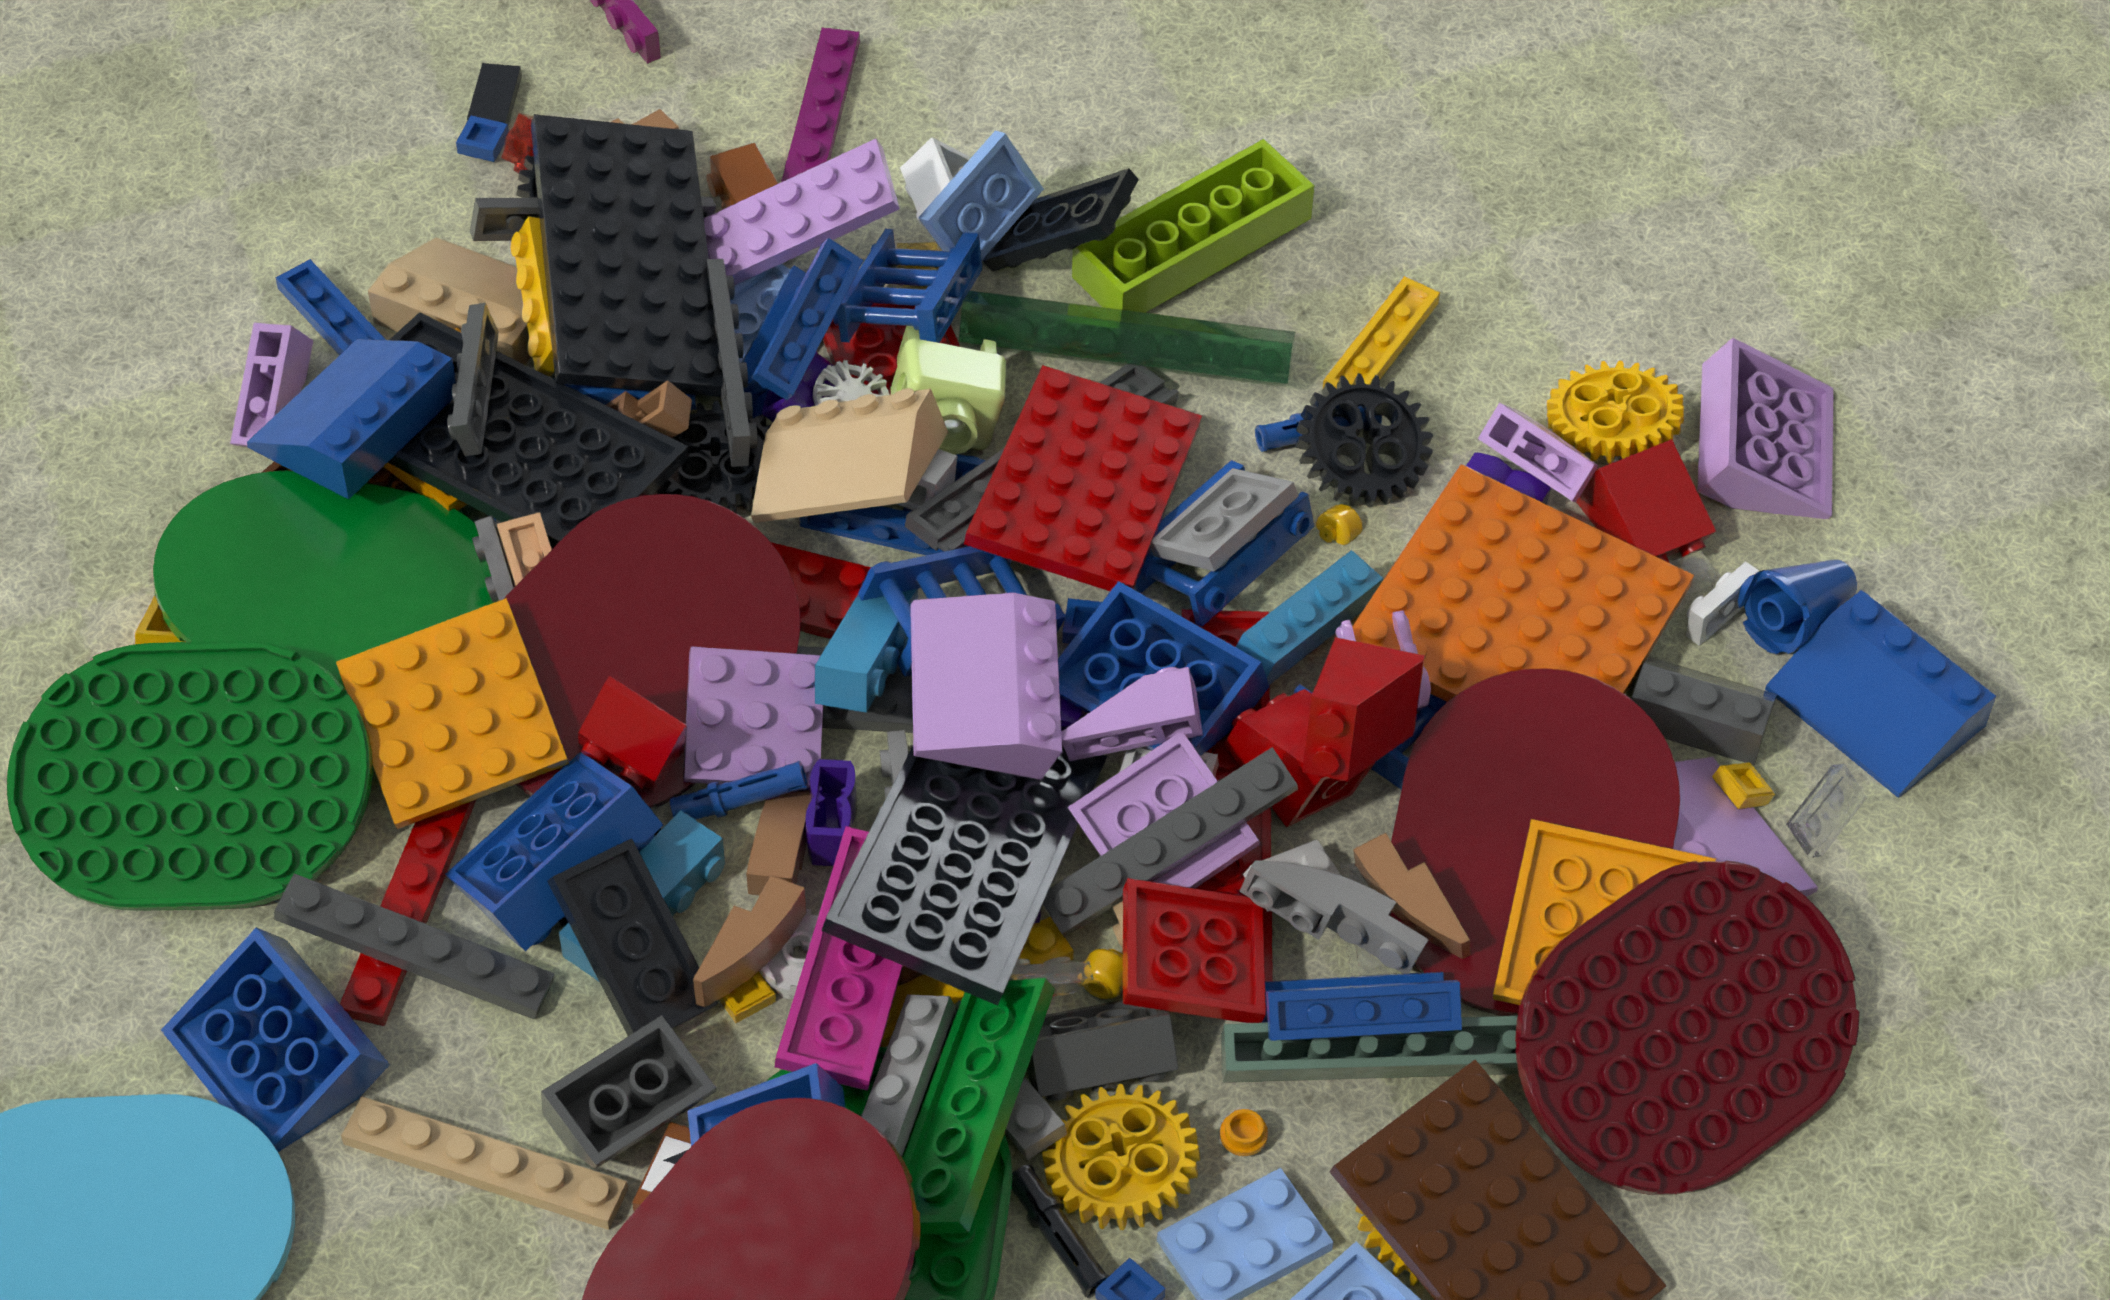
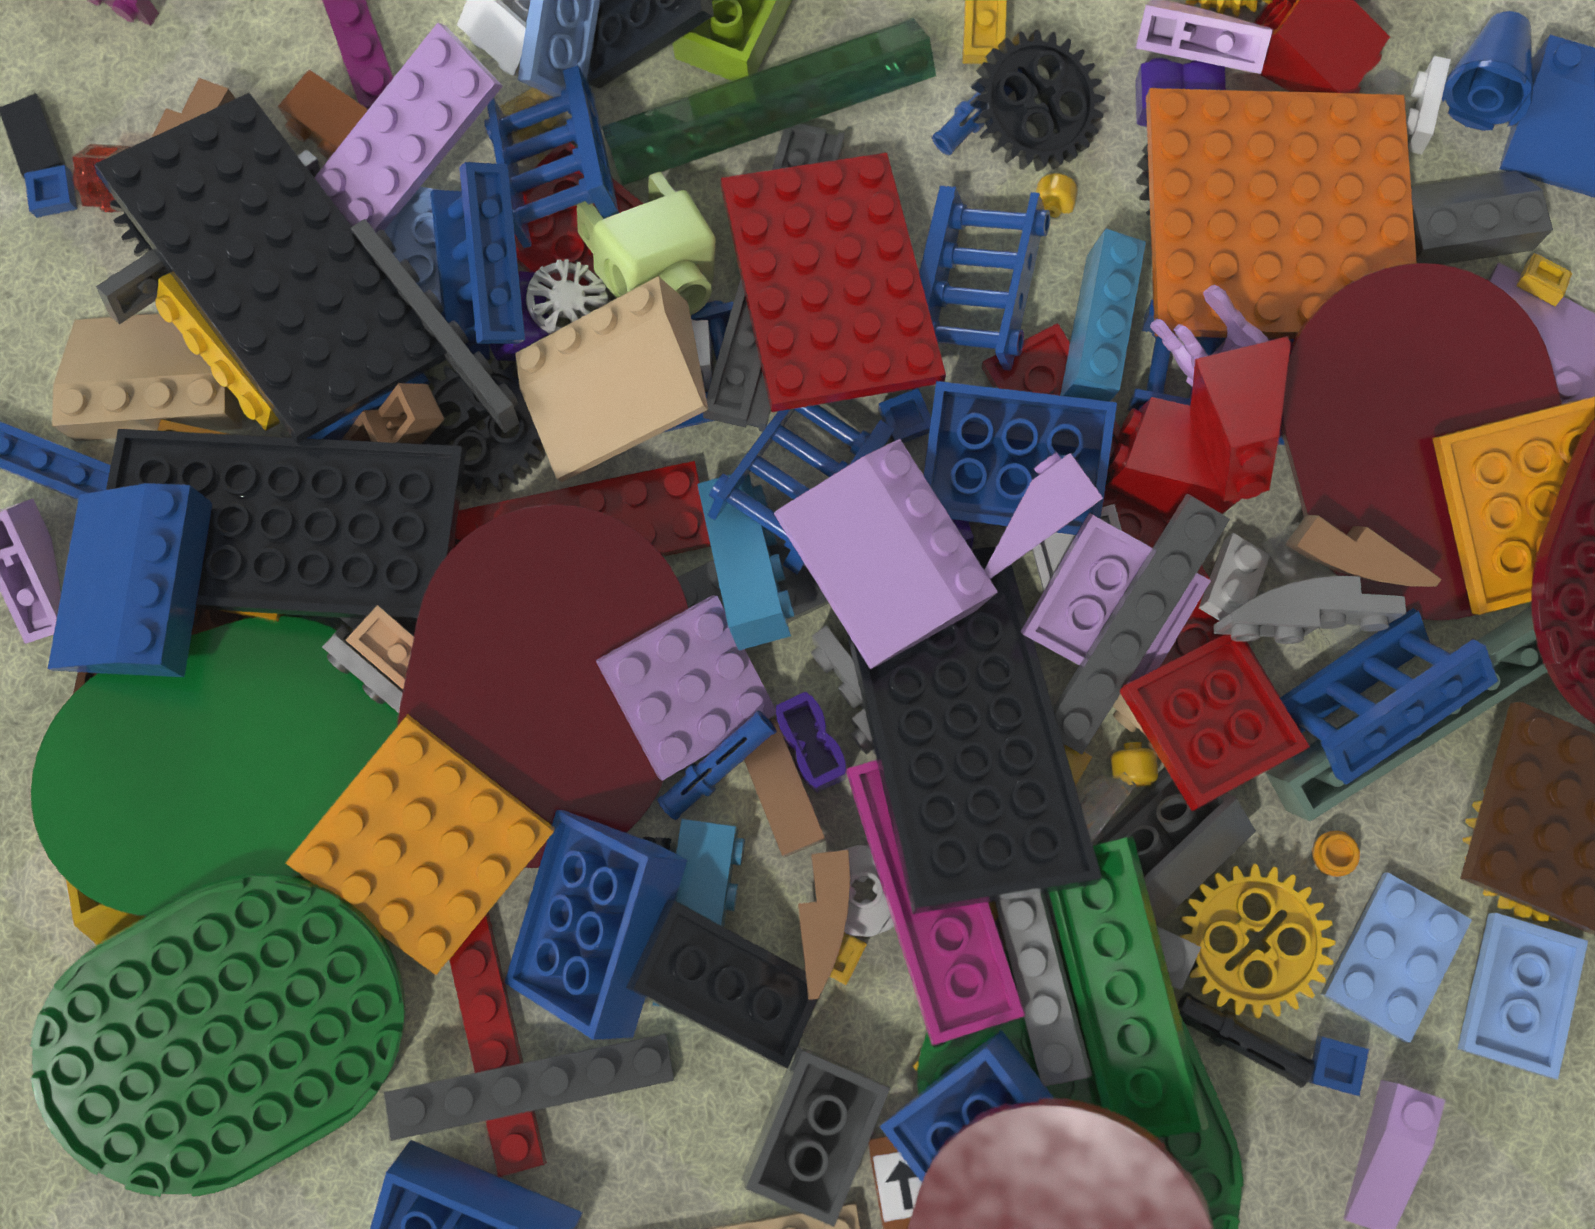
camera: 20 degrees left, 25 degrees up
(474, 381) = (221, 485): dark grey plate -> none
(632, 736) = (600, 780): red slope -> none
(1223, 519) = (982, 259): light grey plate -> none

